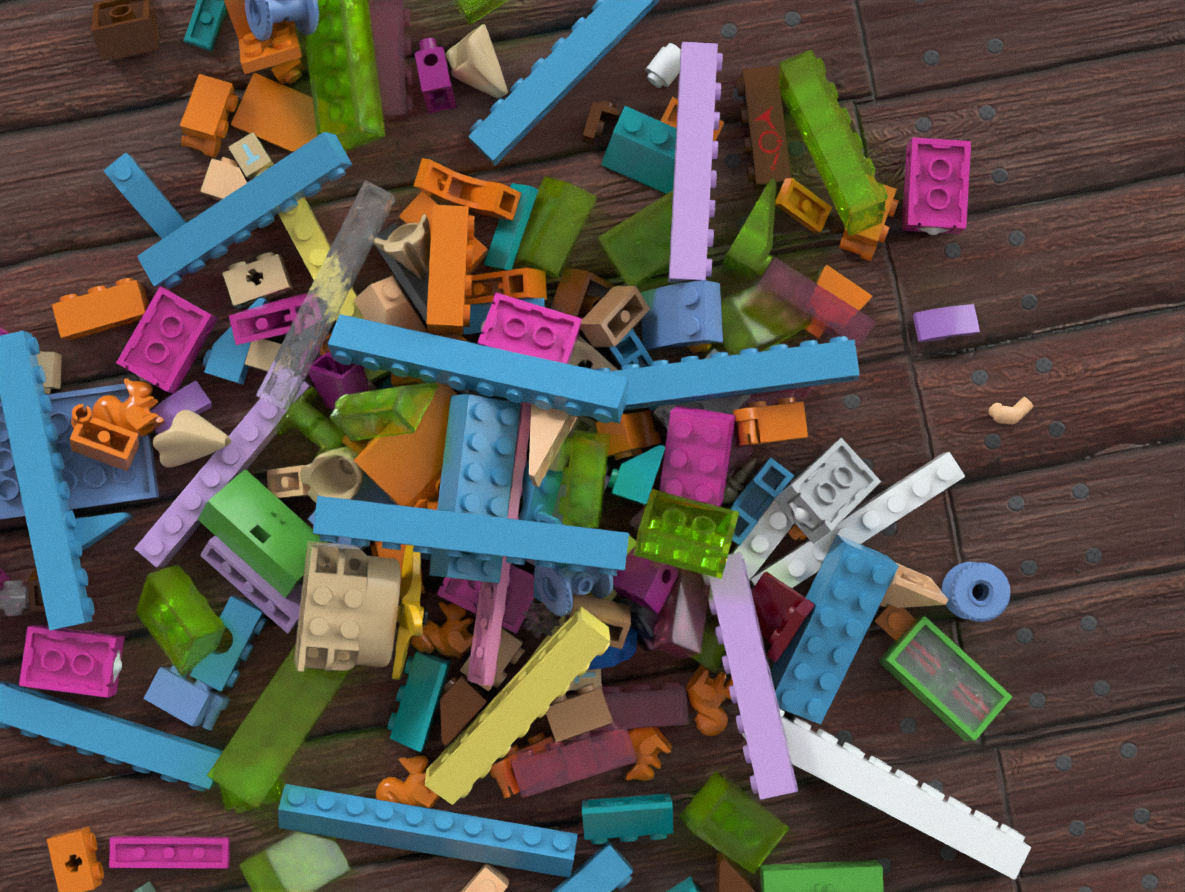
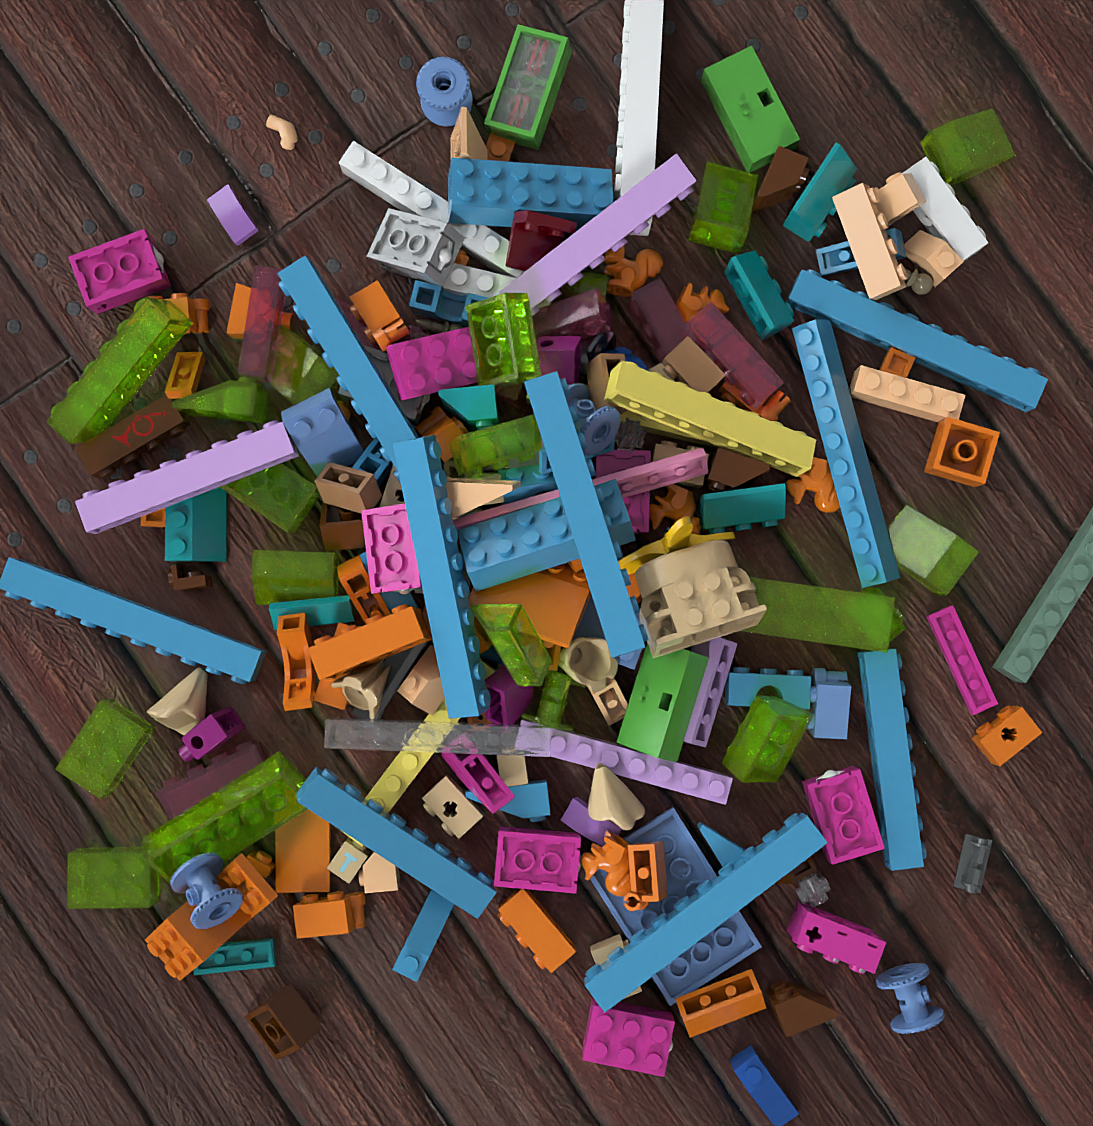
camera: 110 degrees left, 0 degrees up
(664, 66) = (116, 543): white brick -> none

